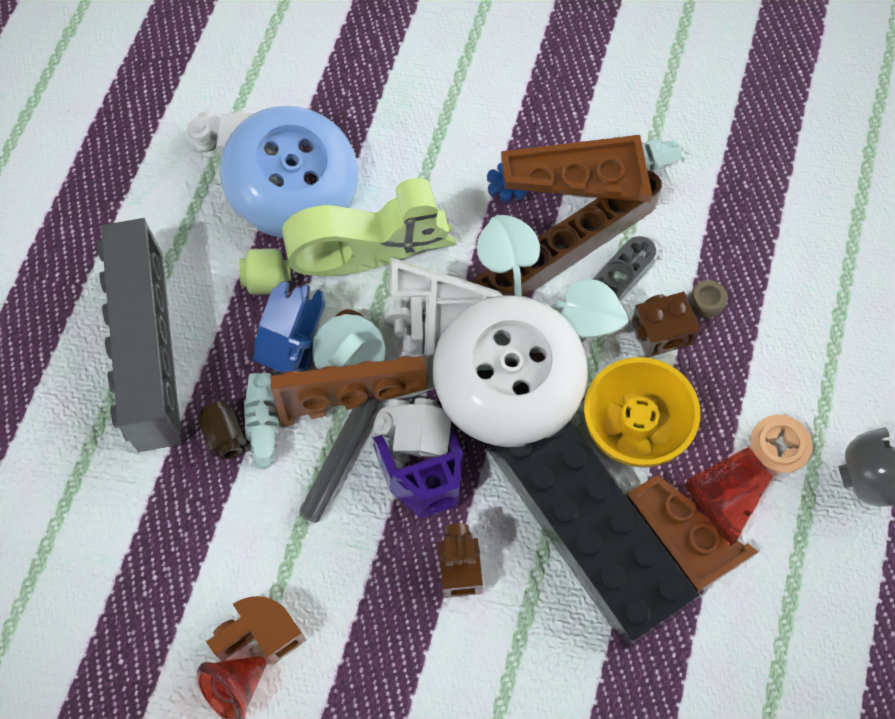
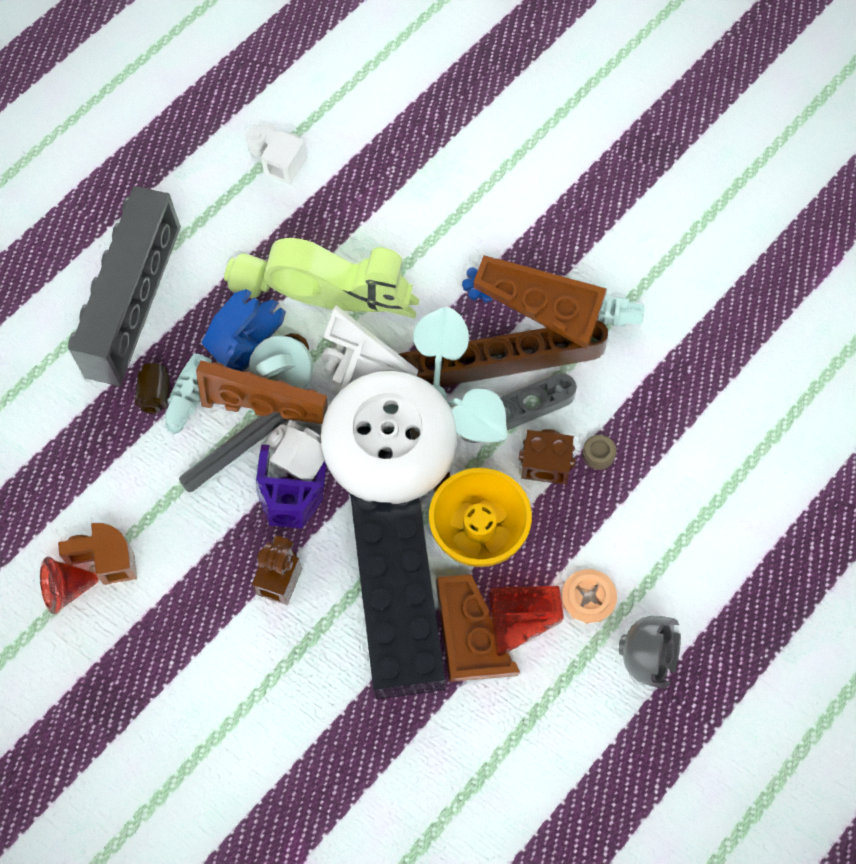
camera: 25 degrees right, 0 degrees up
(247, 168) = (320, 165): light blue brick -> none

